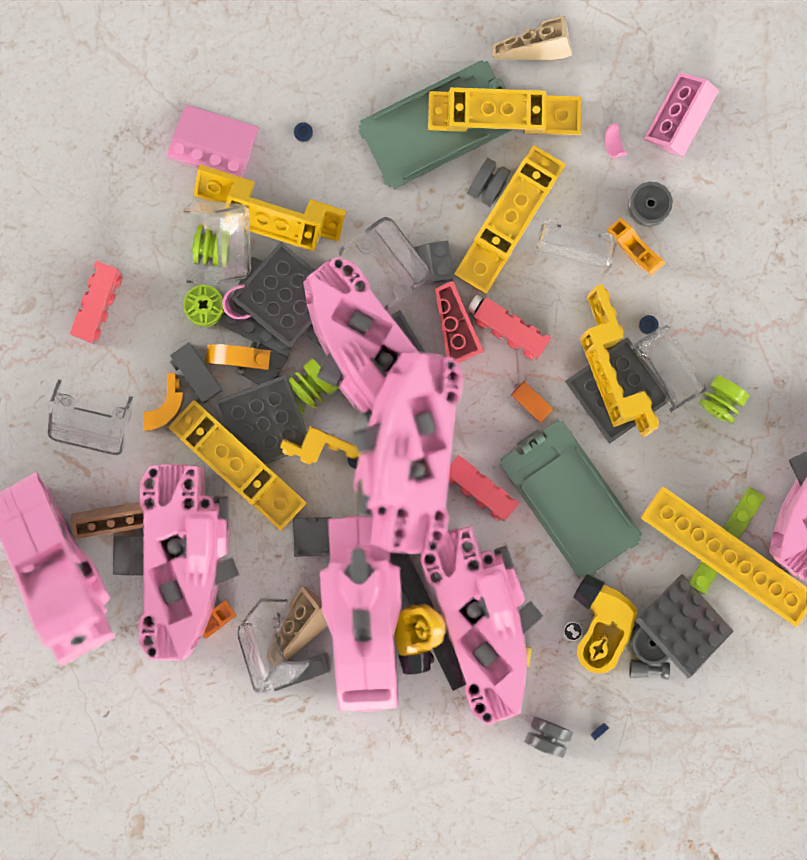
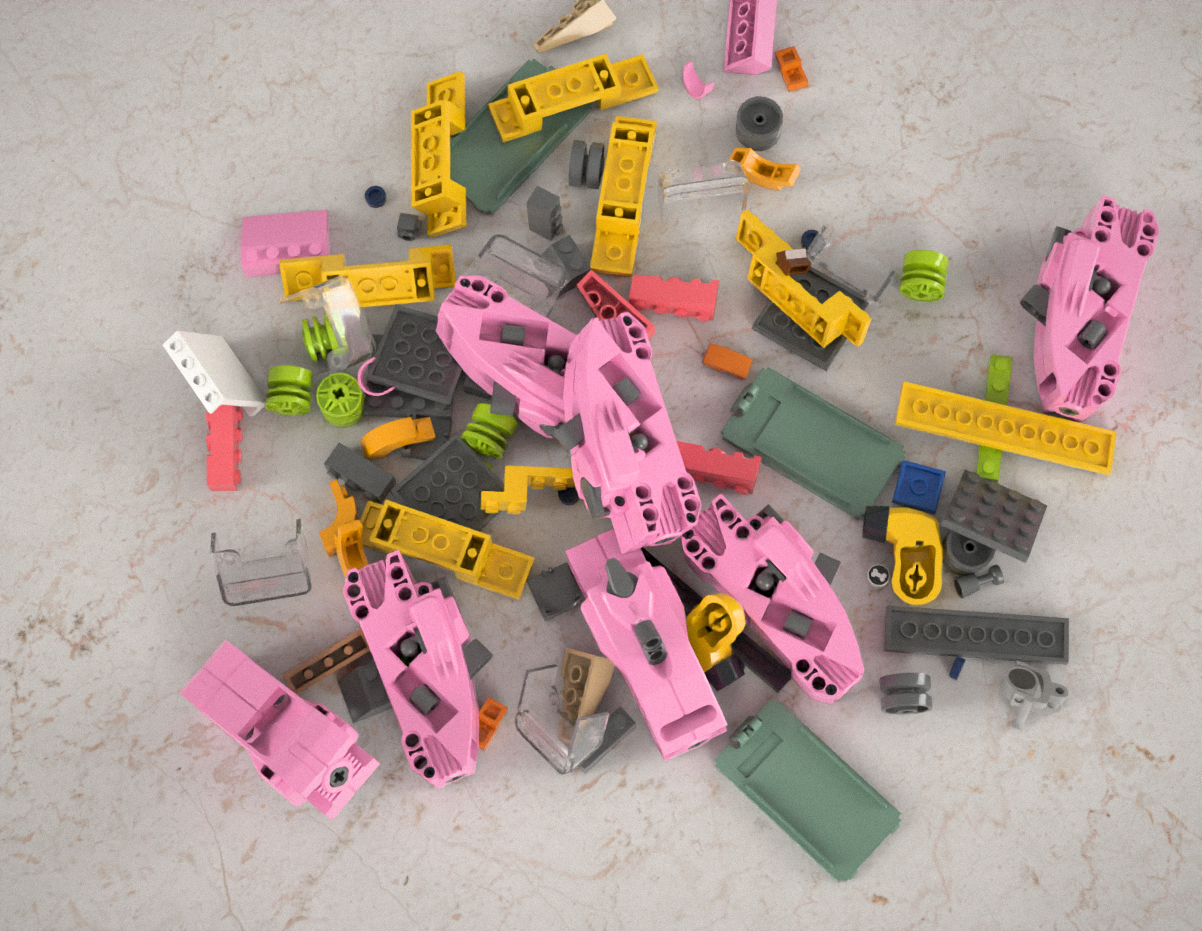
camera: 20 degrees left, 15 degrees down
(110, 244) = (214, 371): none -> white panel
(162, 442) = (349, 546): none -> light orange arch
(165, 281) = (289, 390): none -> lime wheel
(319, 172) = (408, 226): none -> dark grey plate
(364, 116) = (431, 130): none -> yellow bracket
(434, 215) = (544, 213): none -> dark grey brick
(441, 775) = (807, 790): none -> sand green piece
(475, 304) = (625, 286): white tile -> none
(618, 349) = (793, 261): none -> reddish brown piece
(627, 711) = (977, 634): none -> dark grey plate
(638, 573) = (918, 487): none -> blue plate
(643, 766) = (1021, 685): none -> light grey piece
(701, 162) = (791, 69): none -> orange slope

